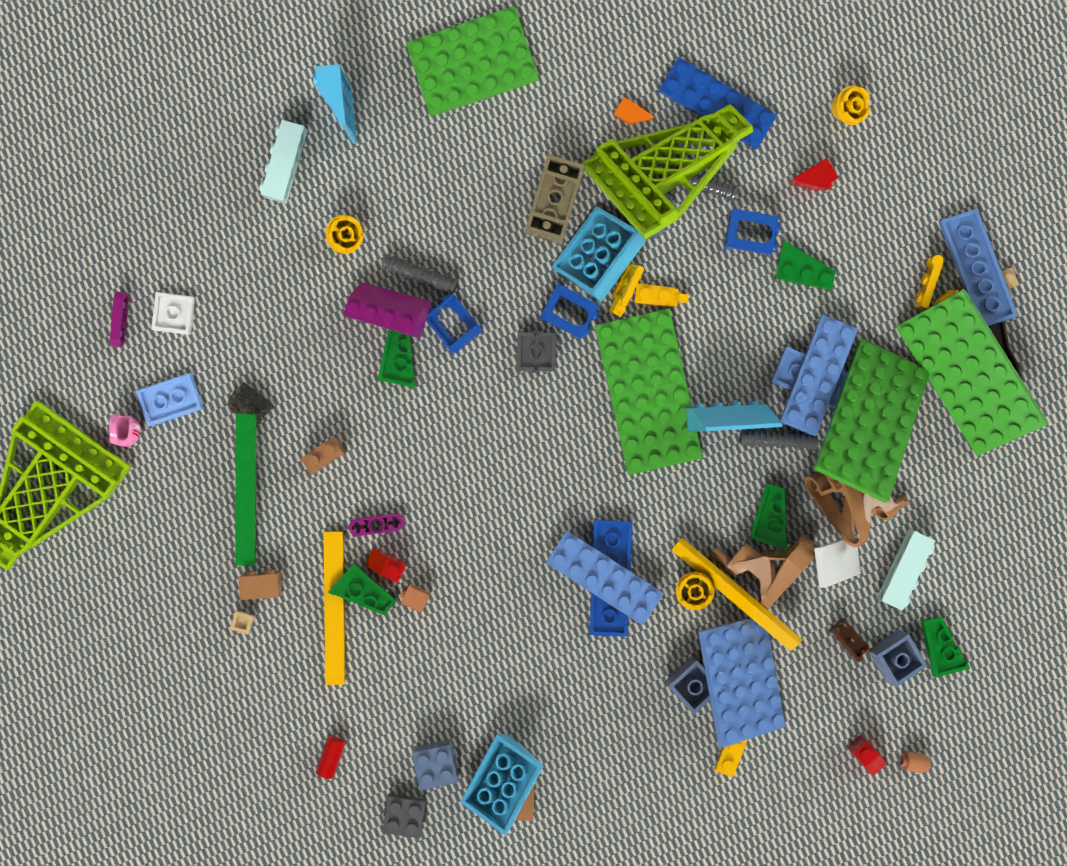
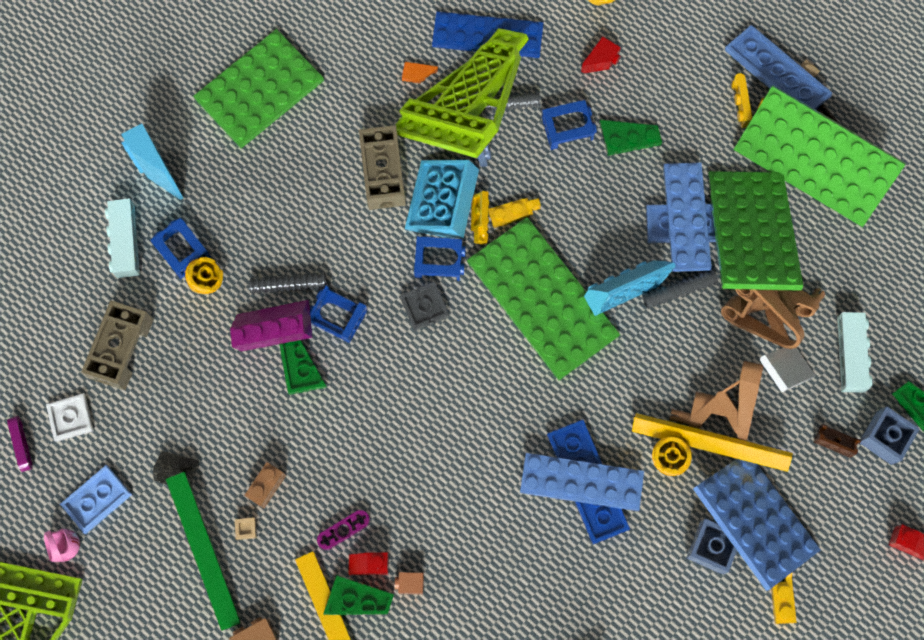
camera: 20 degrees left, 15 degrees down
(253, 252) = (110, 363): none -> dark tan plate
(291, 485) = (245, 528): none -> tan plate
(341, 173) = (173, 227): none -> blue panel
(771, 518) = (708, 359): green wing -> none

